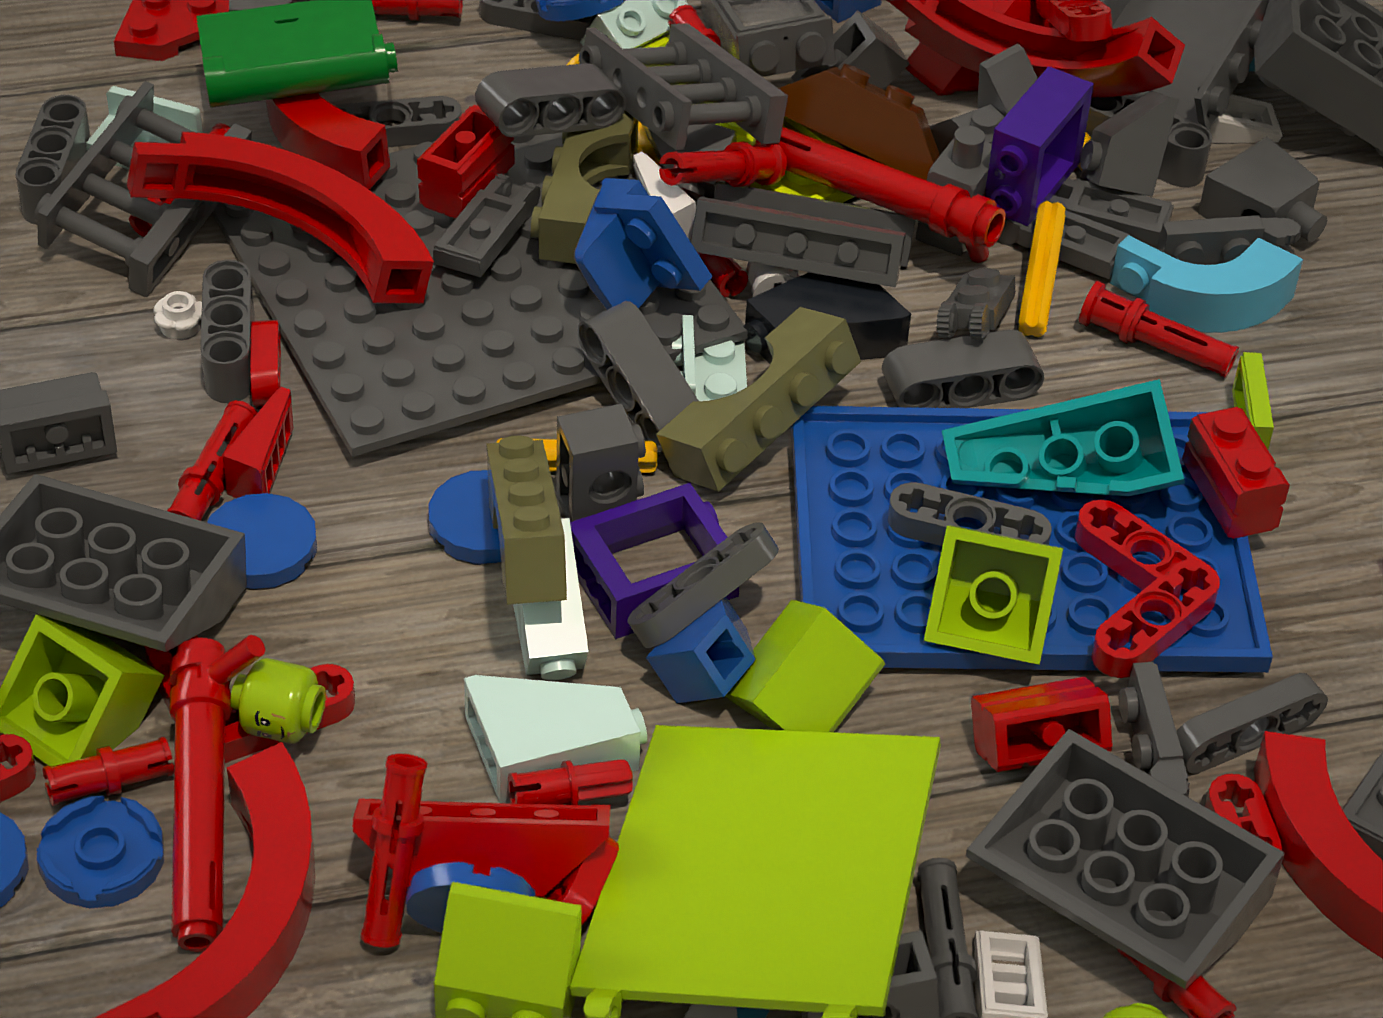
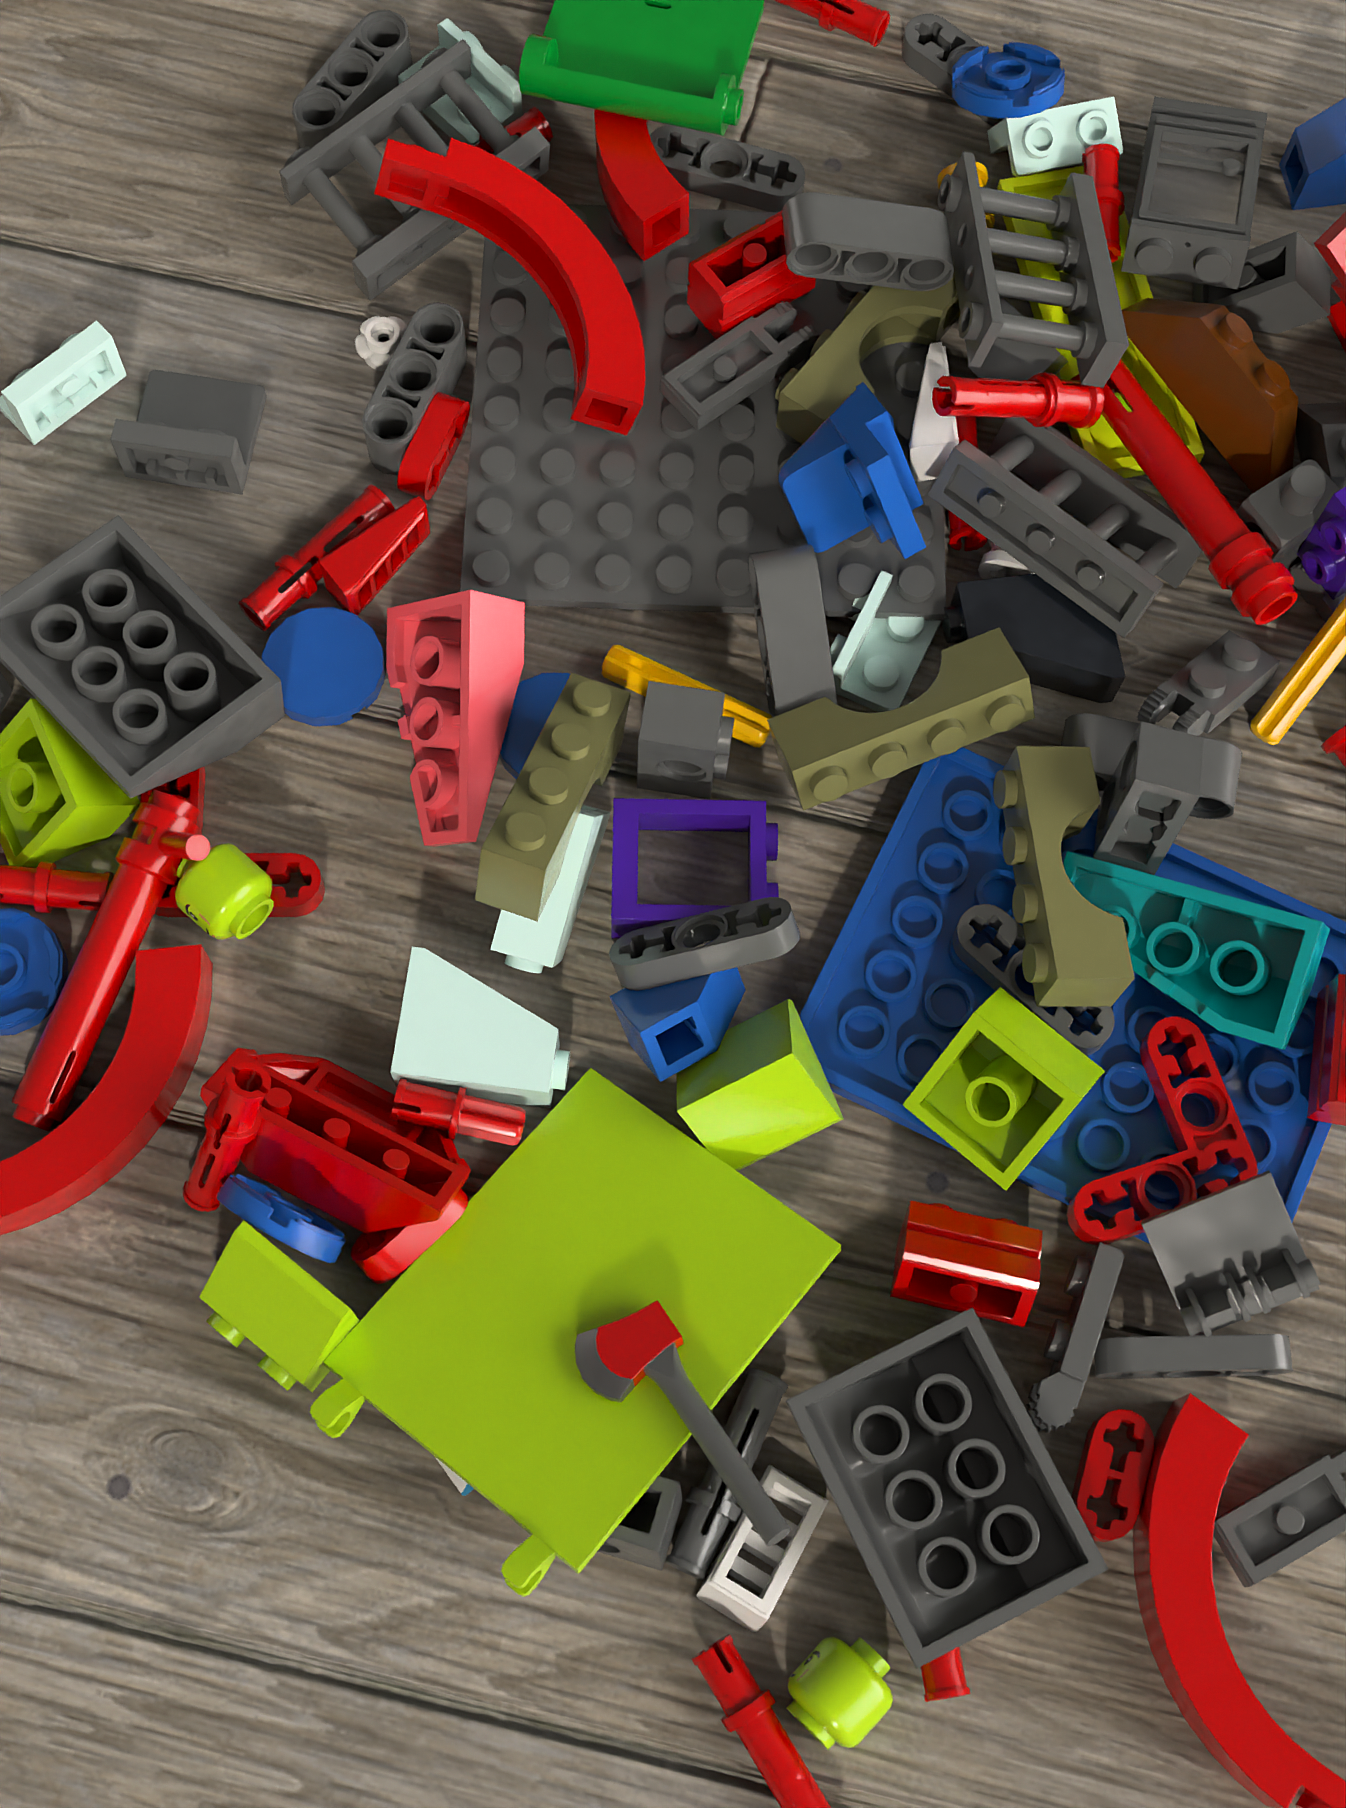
camera: 25 degrees right, 25 degrees up
(388, 515) = (457, 684): none -> coral wedge
(833, 848) = (646, 1343): none -> piece
(981, 362) = (1149, 797): none -> dark grey brick
(984, 473) = (1072, 947): none -> olive arch
(1234, 628) = (1231, 1255): none -> dark grey hinge

